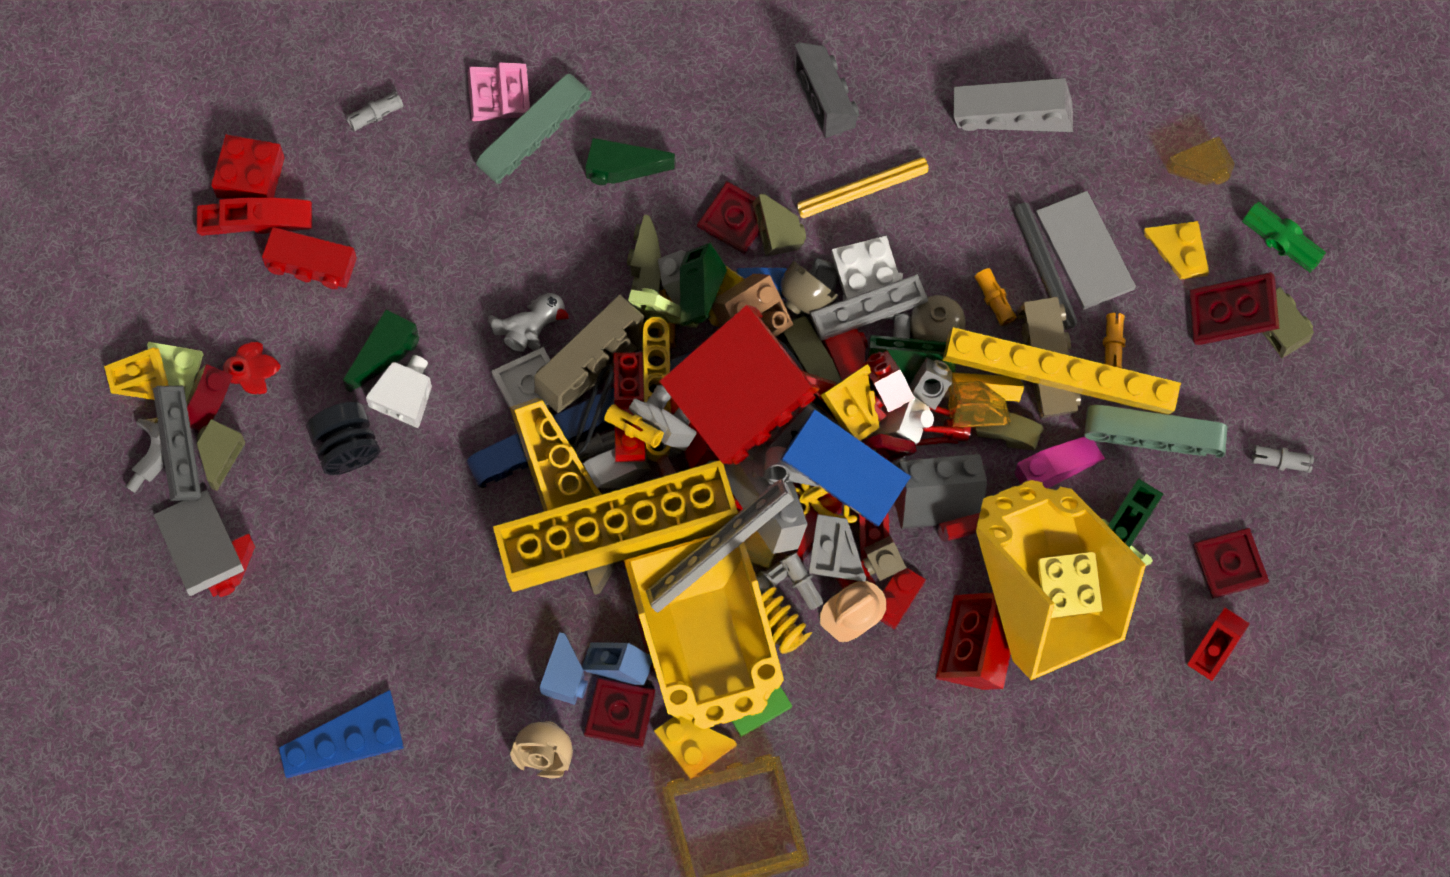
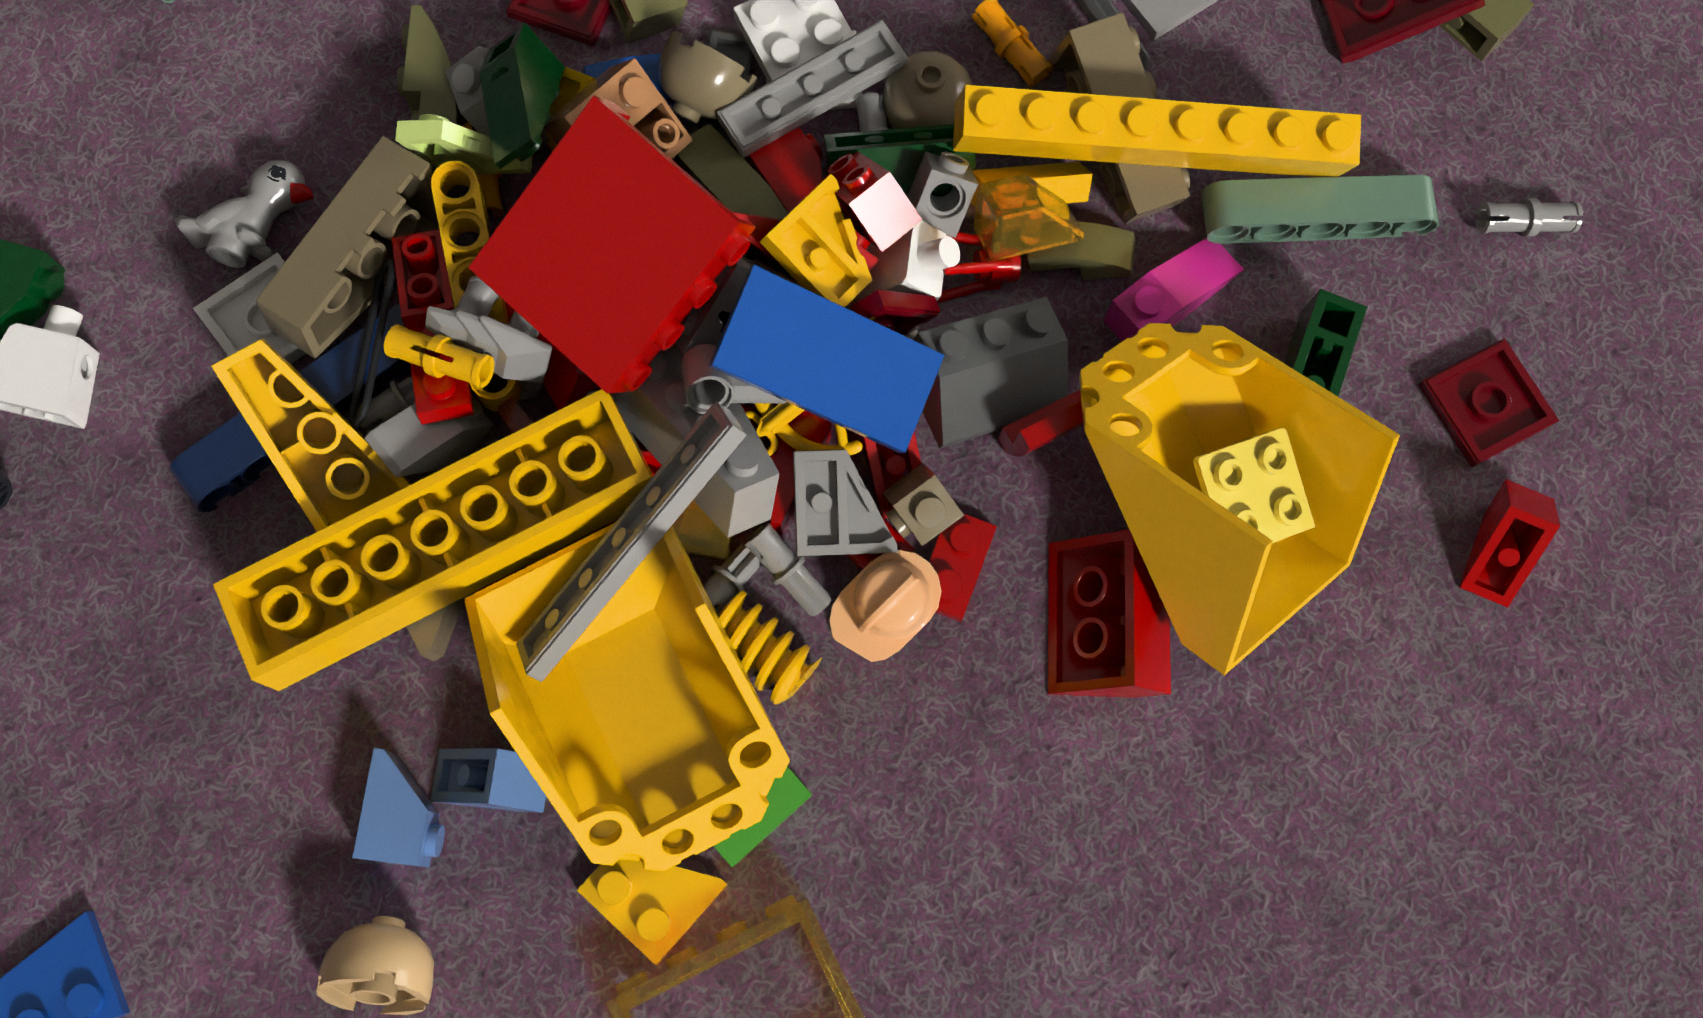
camera: 15 degrees left, 5 degrees up
(620, 712) = (510, 868): dark red tile -> none
(1114, 340) = (1215, 76): light orange pin -> none

